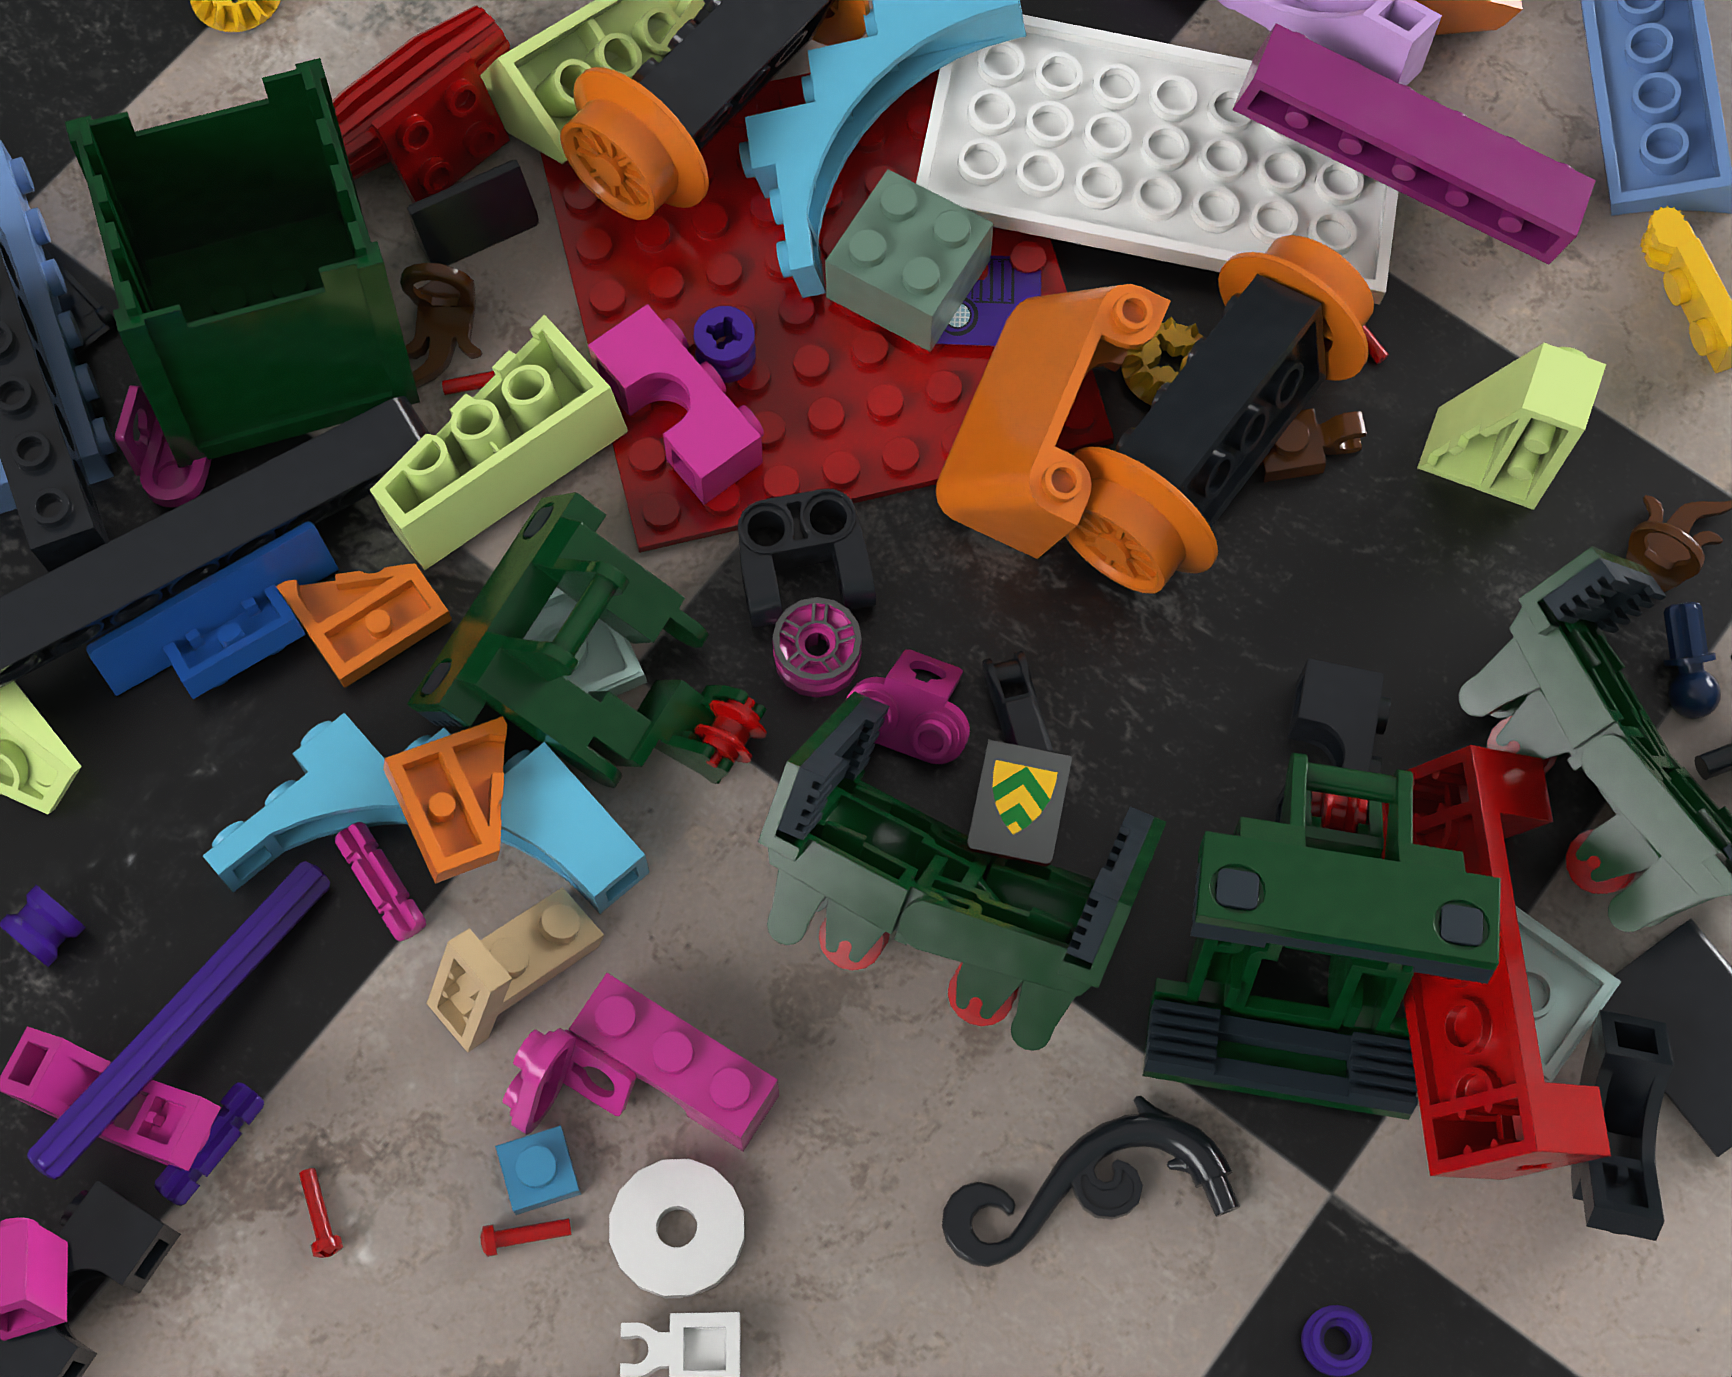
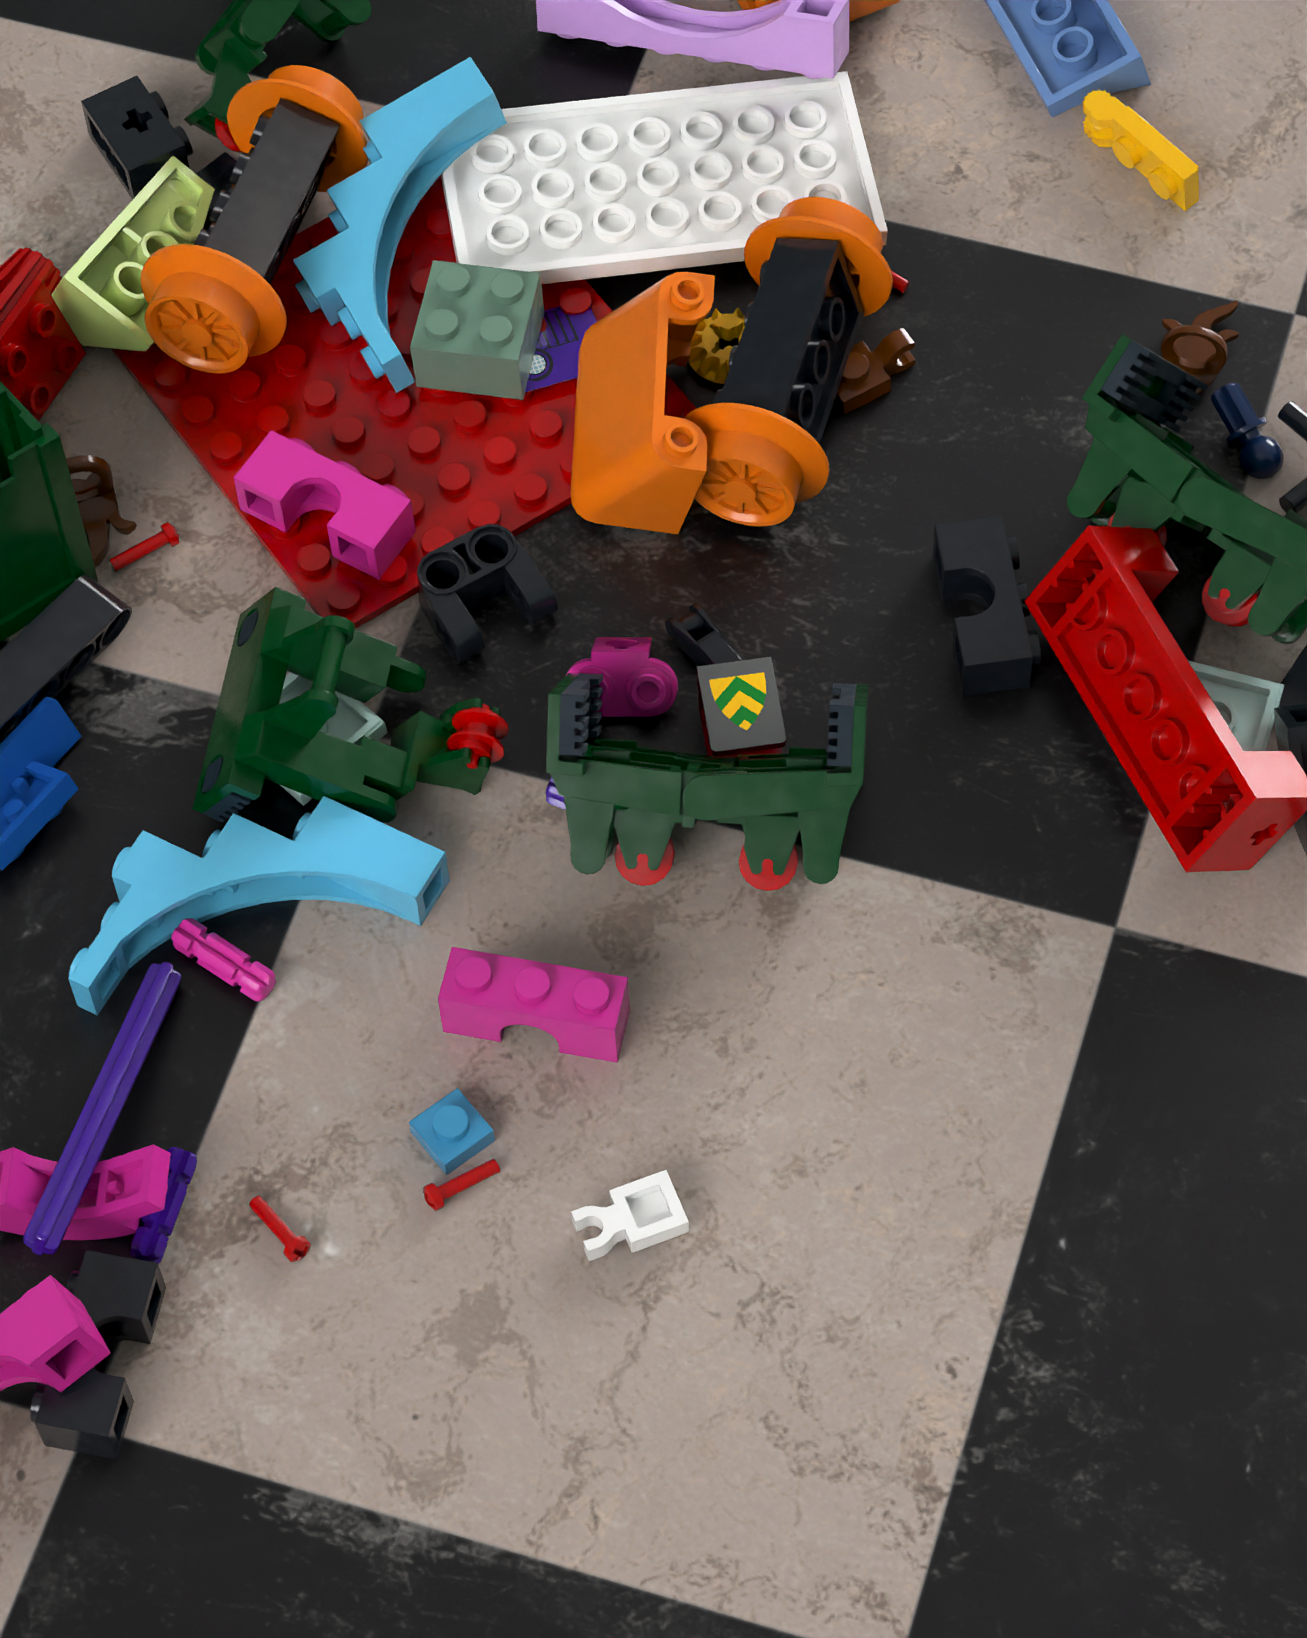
camera: 15 degrees left, 10 degrees down
(366, 616) = (126, 759): orange wing -> none
(453, 797) = (266, 856): orange wing -> none
(473, 214) = (91, 410): black slope -> none
(494, 973) = (356, 982): tan bracket -> none
(500, 447) = (188, 586): yellowish green wedge -> none
(551, 1061) = (431, 1029): dark pink bracket -> none
(666, 1188) = (579, 1102): white tile -> none
(735, 354) = (357, 437): dark purple wheel -> none
(805, 626) = (516, 636): dark pink wheel -> none
(1075, 1169) = (926, 992): black plant -> none
(1326, 892) = (1017, 670): dark green container -> none
(1356, 1333) = (1163, 1013): dark purple plate -> none
(1414, 144) = (865, 107): magenta brick -> none
(1515, 425) = (1033, 294): yellowish green wedge -> none

